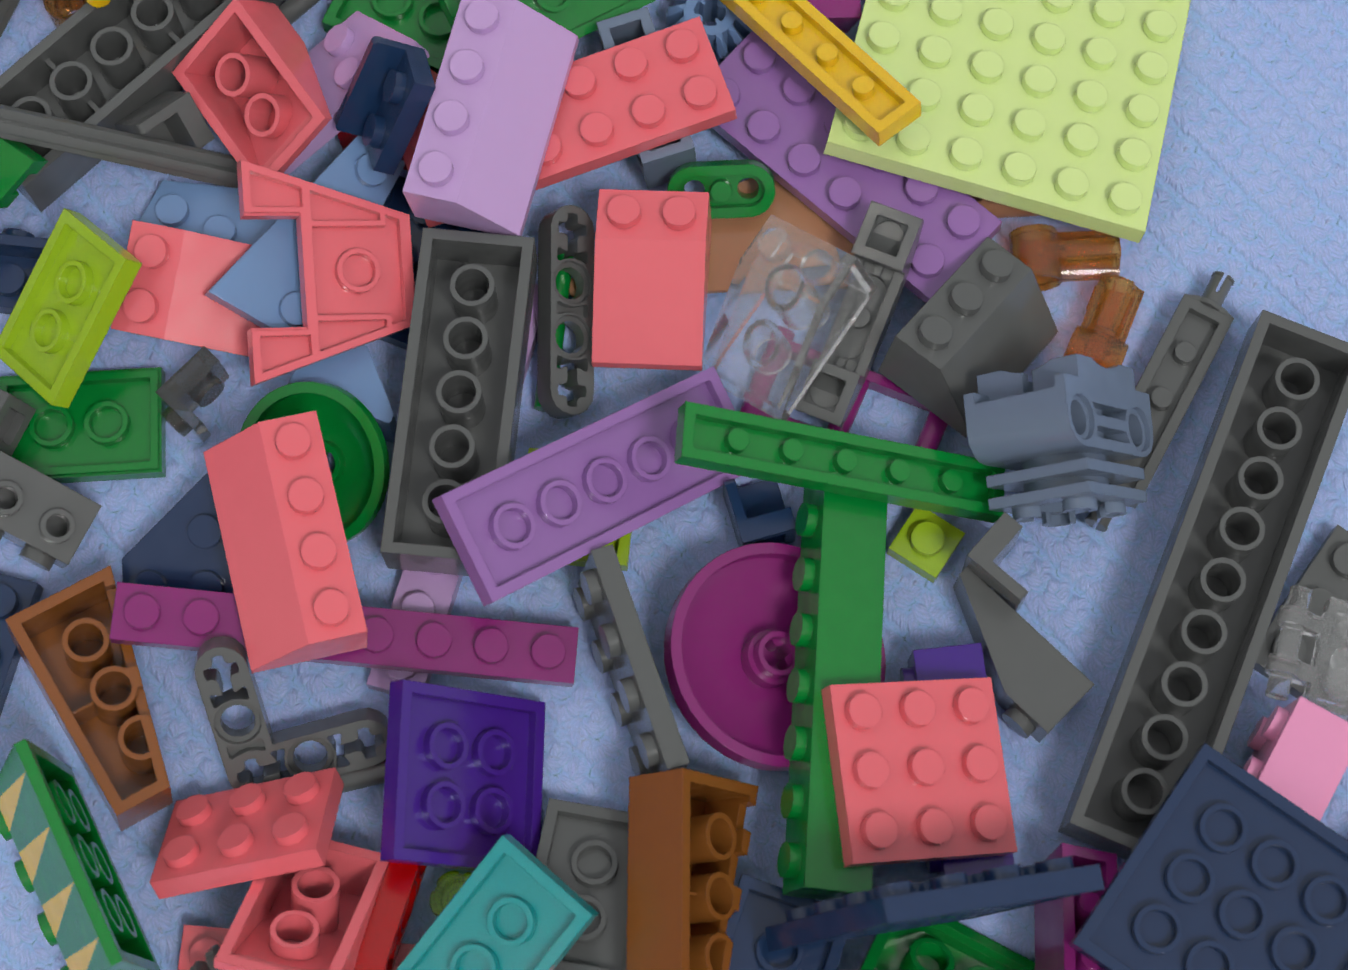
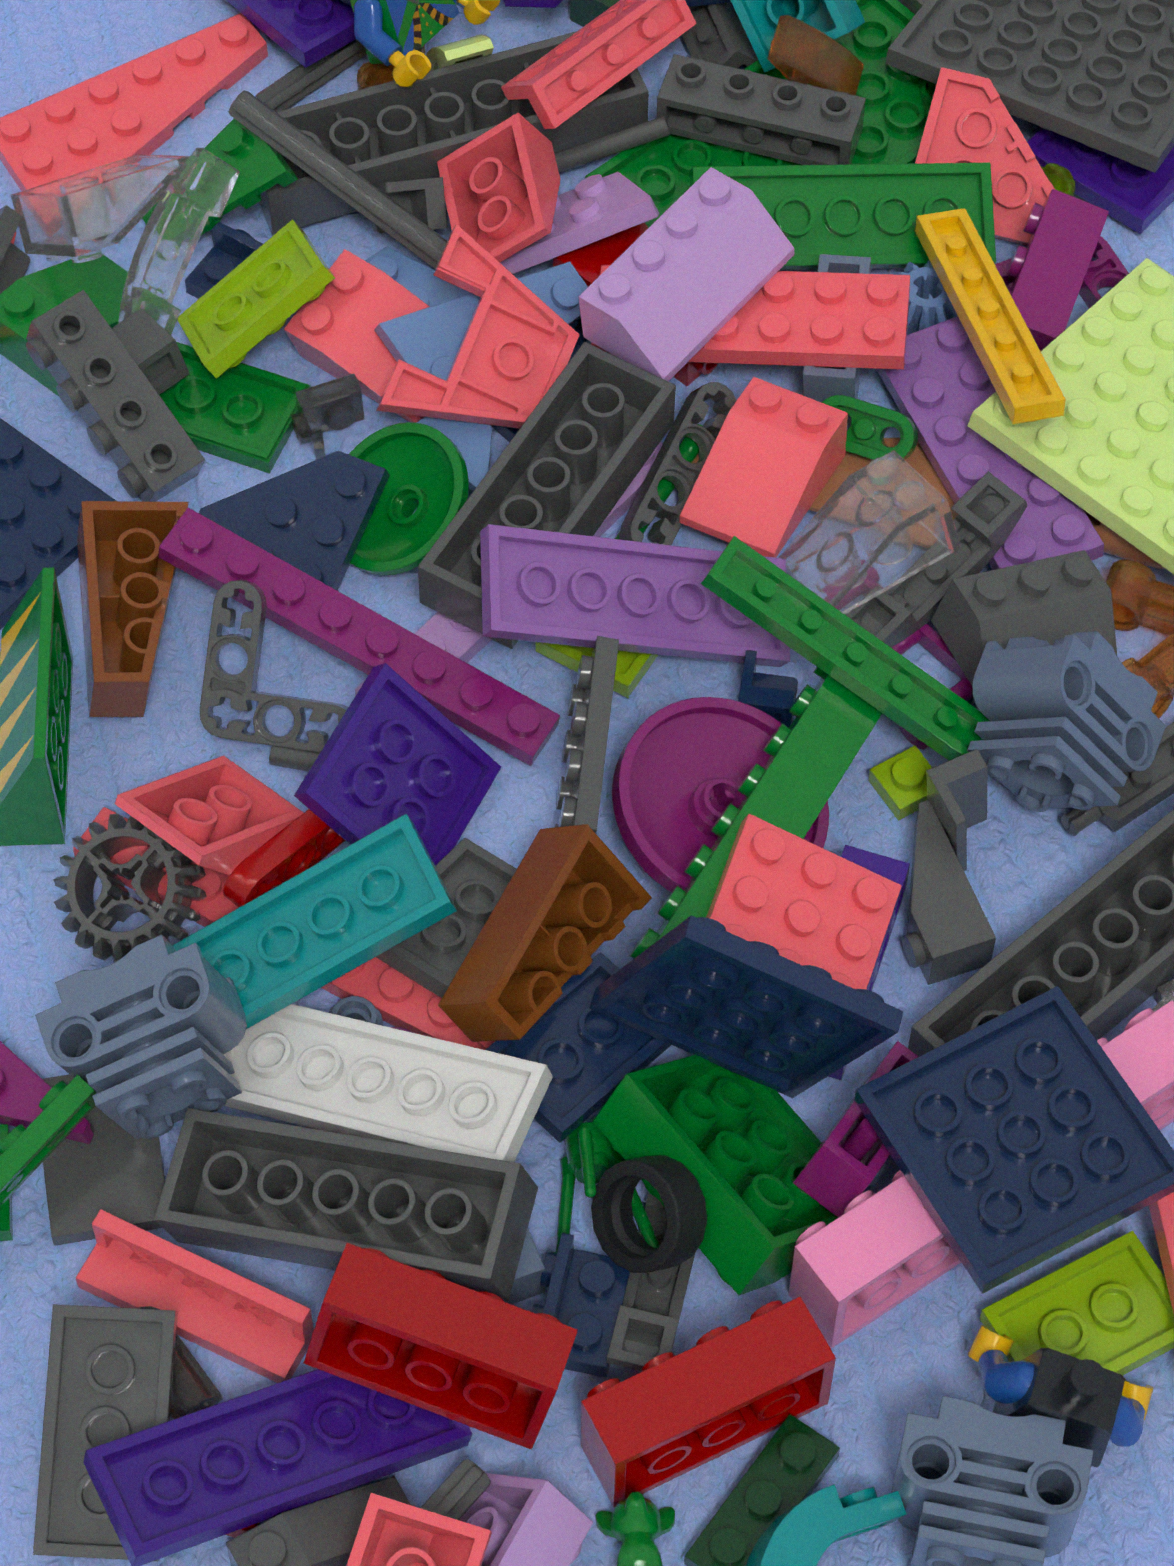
camera: 25 degrees right, 15 degrees down
(248, 833) = (195, 743): coral plate -> none
(285, 543) = (342, 530): coral slope -> none
(387, 100) = (602, 231): dark blue bracket -> none

